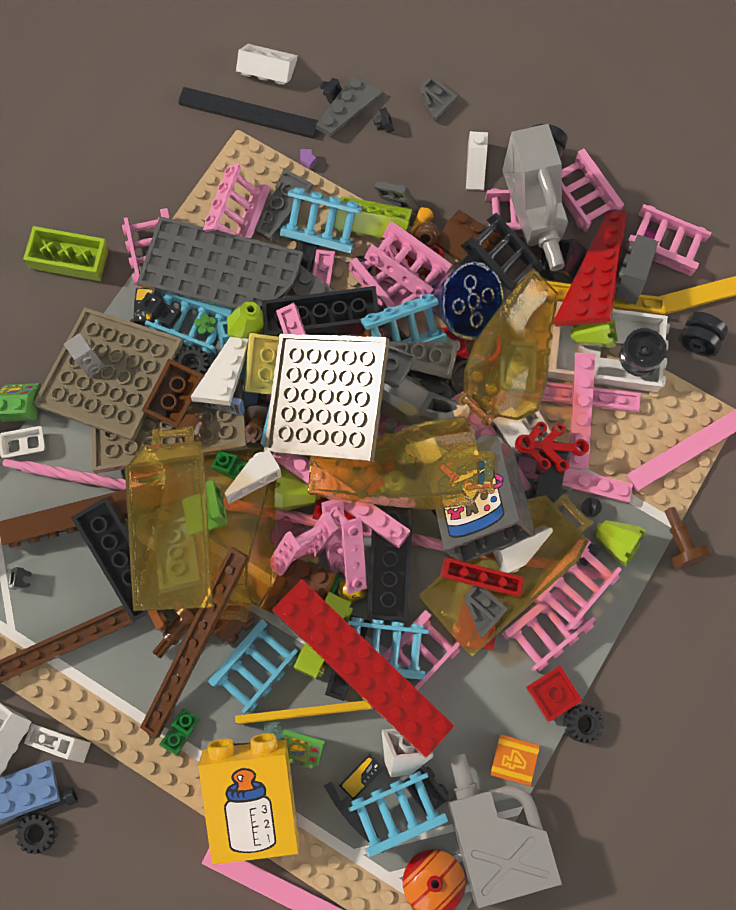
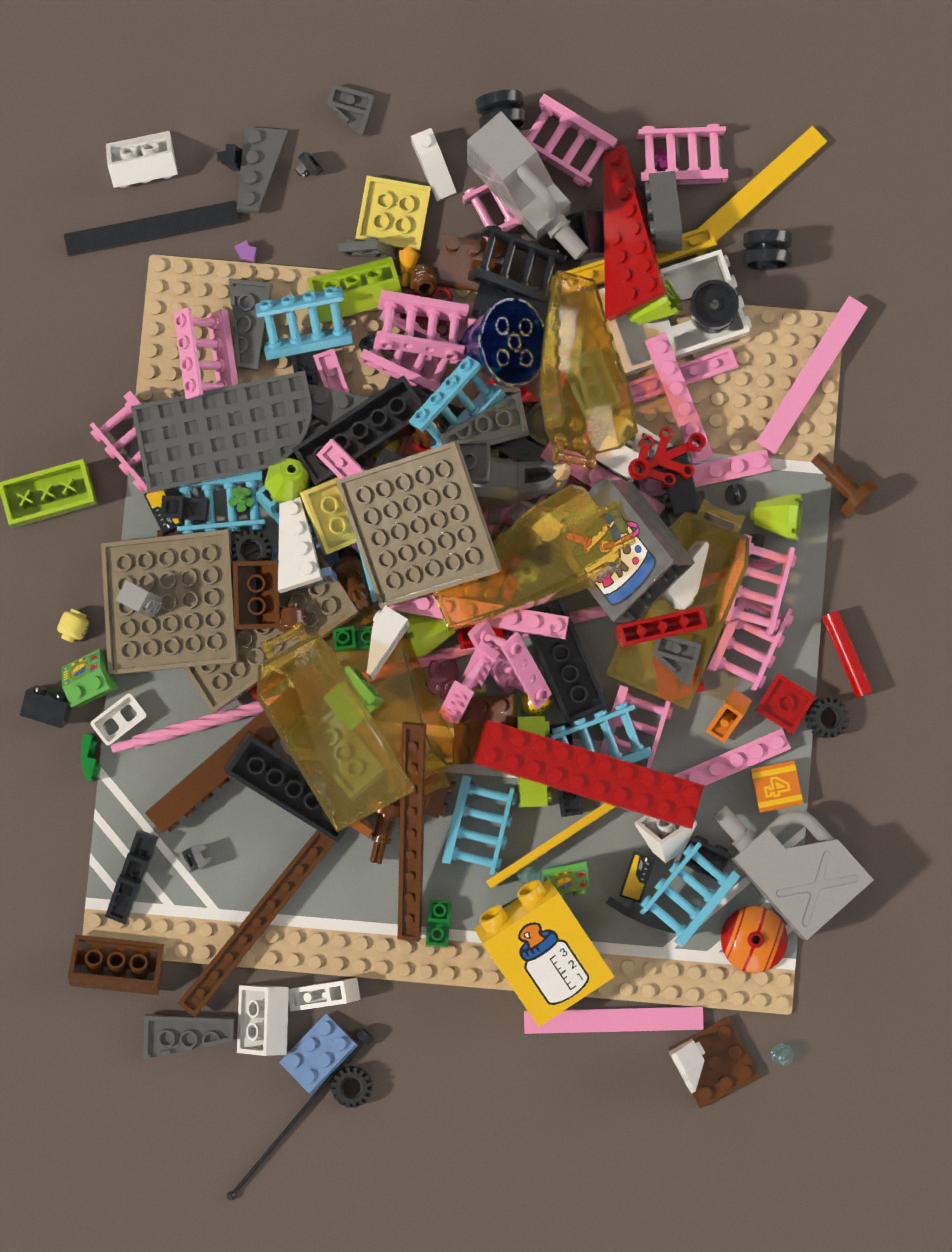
camera: 25 degrees left, 10 degrees up
(30, 358) = (73, 625): none -> light yellow head
(431, 180) = (393, 212): none -> light yellow plate
(493, 720) = (737, 759): none -> bright pink plate
(502, 680) = (728, 715): none -> orange slope
(624, 679) = (847, 654): none -> red brick

